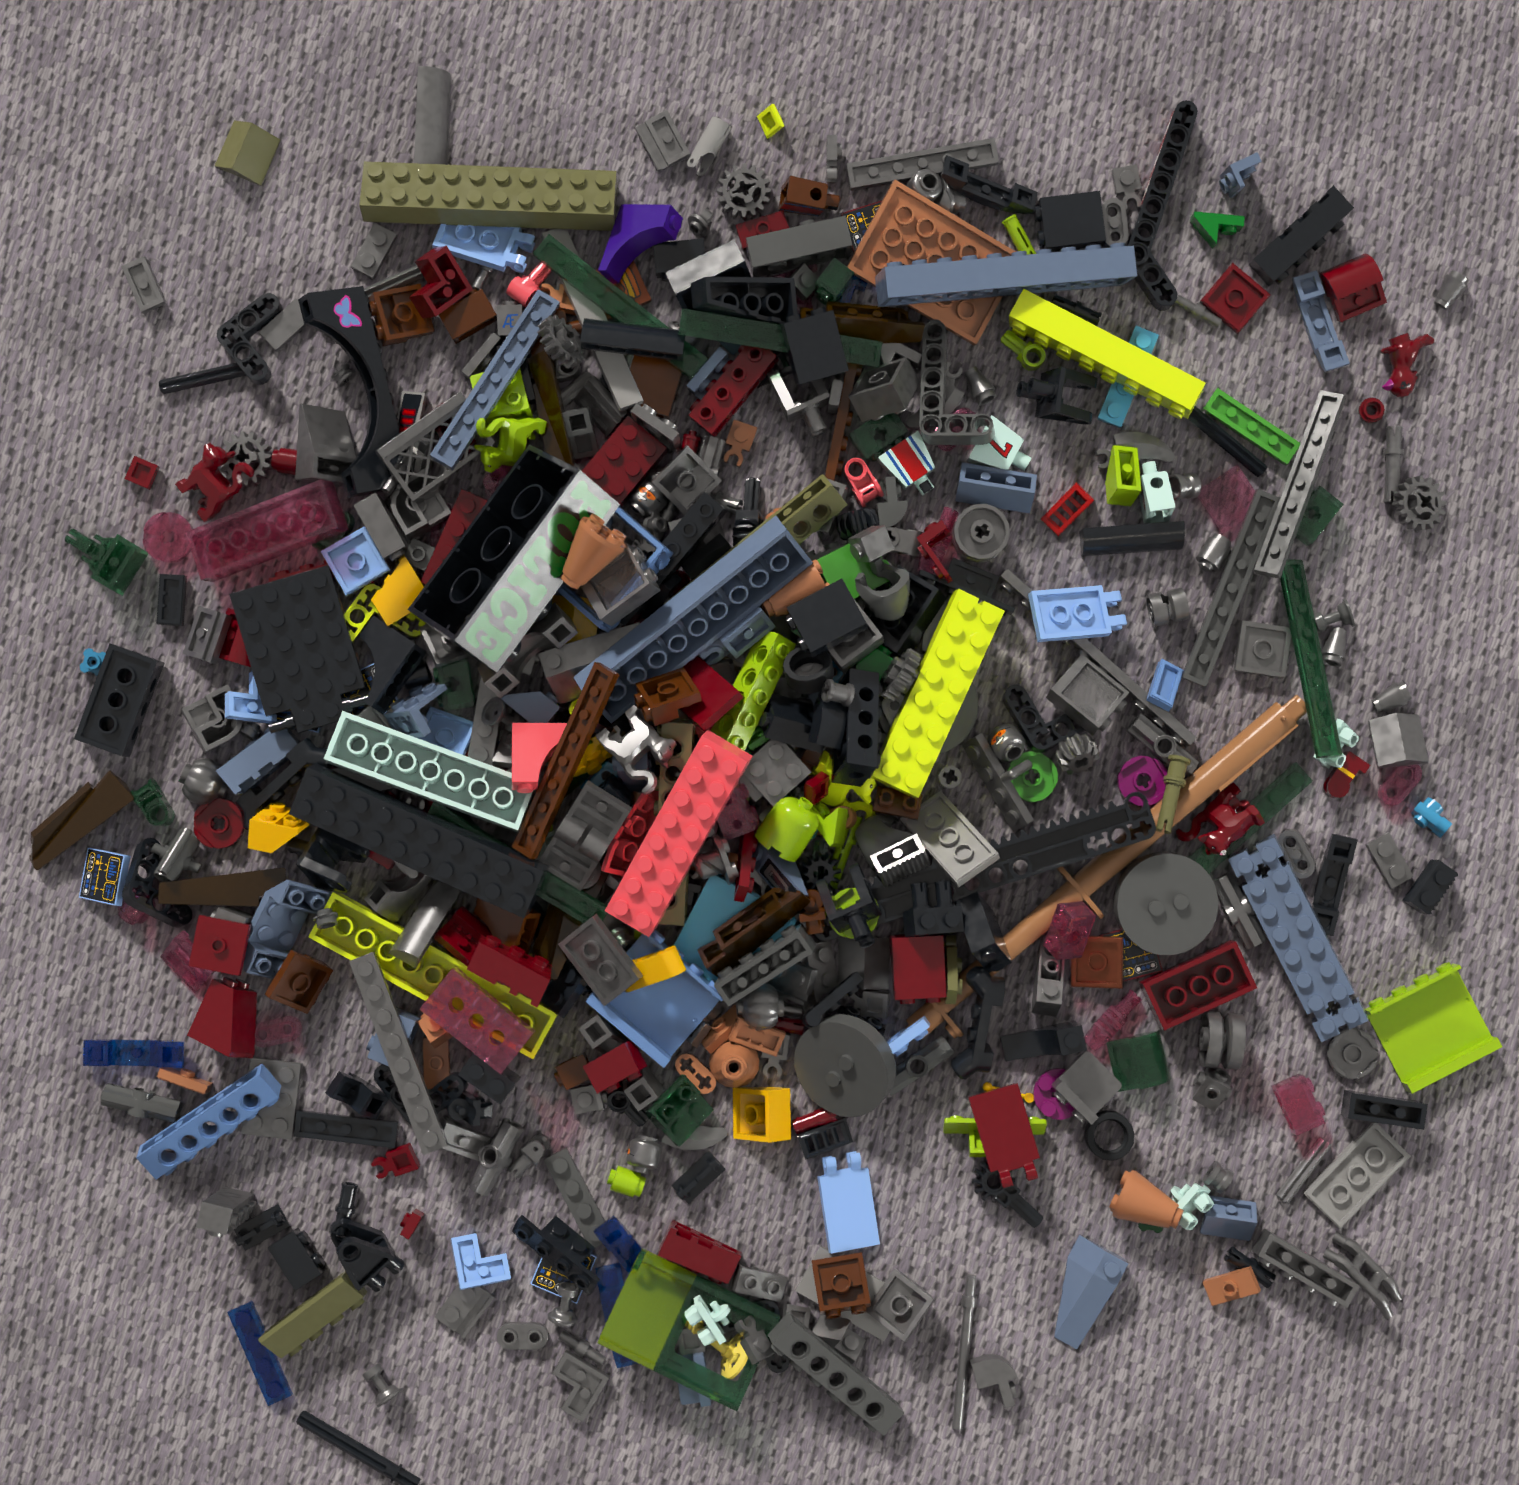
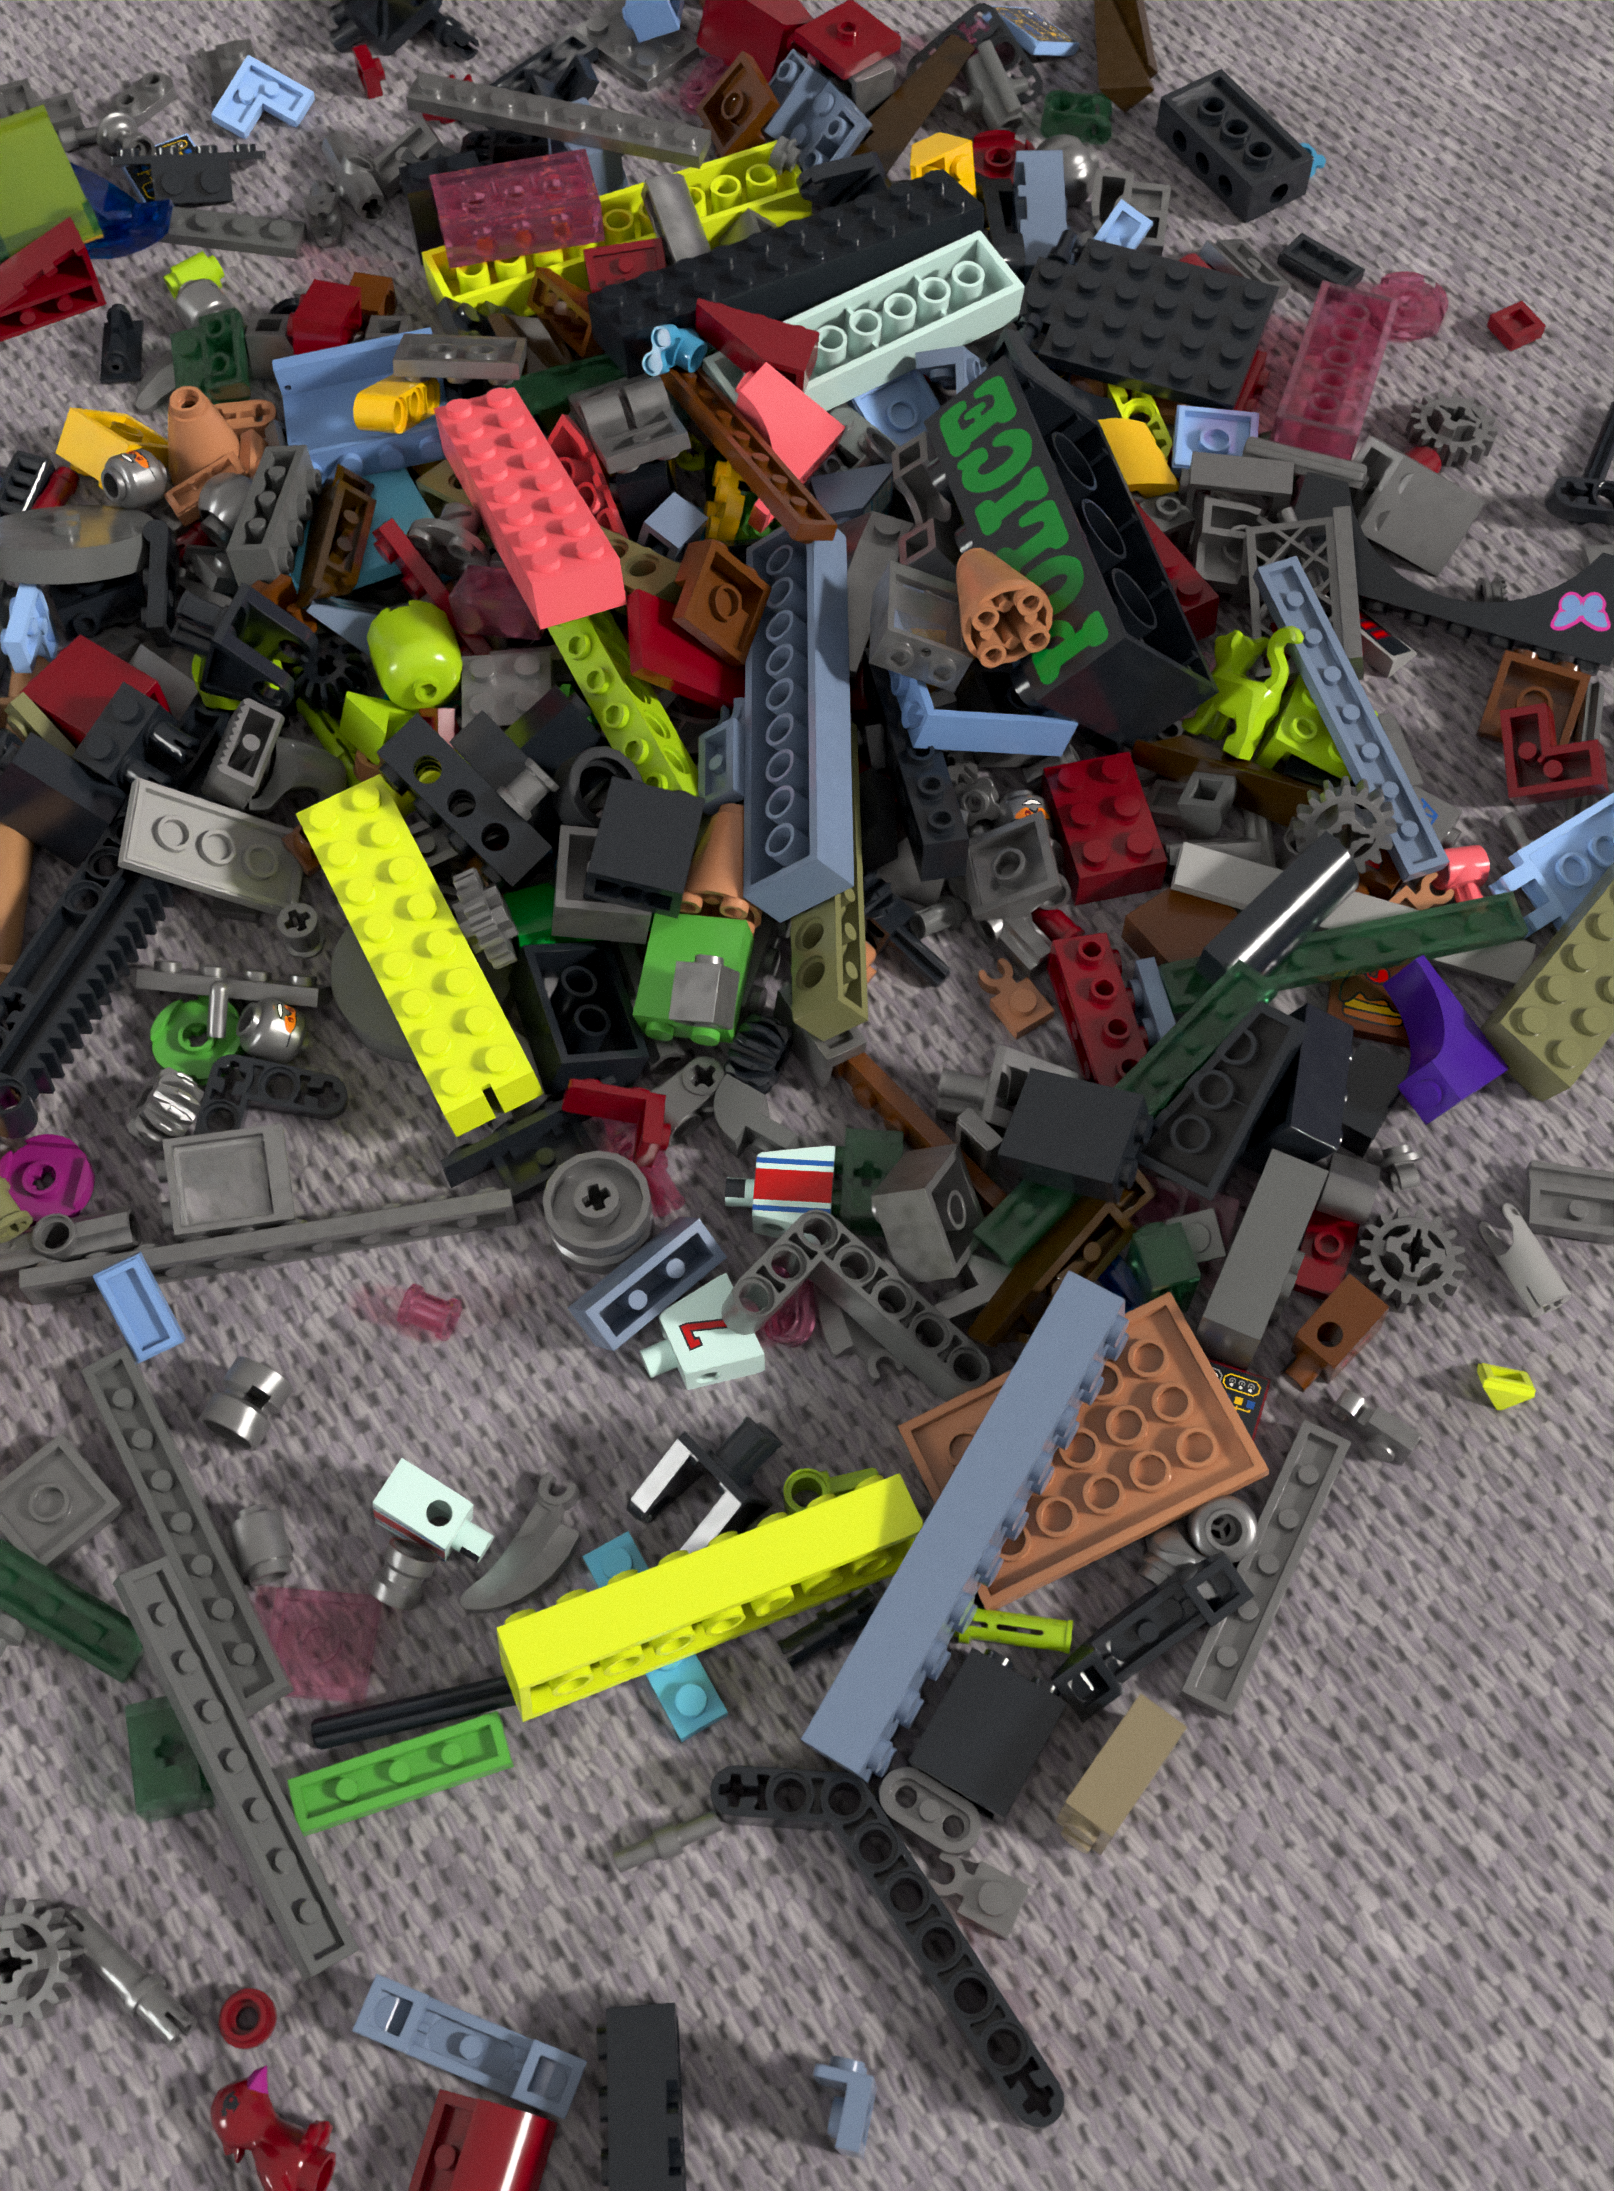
camera: 130 degrees right, 25 degrees down
(112, 561) = (1420, 234): clear green brick -> none
(211, 481) = (1447, 369): dark red animal -> none
(345, 502) = (1308, 461): none -> flat silver axle
(468, 315) = (1472, 778): reddish brown brick -> none
(495, 794) = (754, 339): none -> dark red slope
(511, 968) = (539, 261): dark red wedge -> none
(524, 842) = (674, 347): none -> dark azure plate
(635, 745) = (689, 511): flat silver animal -> none
(663, 431) = (1118, 872): flat silver plate -> none
(735, 228) = (1349, 1189): none -> flat silver beam
(782, 1074) = (134, 479): none -> flat silver head
(862, 483) = (816, 1110): coral piece -> none
(889, 603) = (602, 977): dark grey piece -> none
(980, 388) = (826, 1384): flat silver cone -> none
(1053, 159) = (1119, 1776): none -> dark tan brick
(1073, 569) = (429, 1312): none -> clear pink bush
(1074, 613) = (359, 1249): light blue tile -> none
(1080, 508) = (533, 1409): red slope -> none
(1123, 476) = (503, 1491): lime slope -> none
(1132, 538) = (398, 1434): black brick -> none
(1209, 223) = (801, 1981): green slope -> none
(1235, 298) = (637, 1930): dark red tile -> none

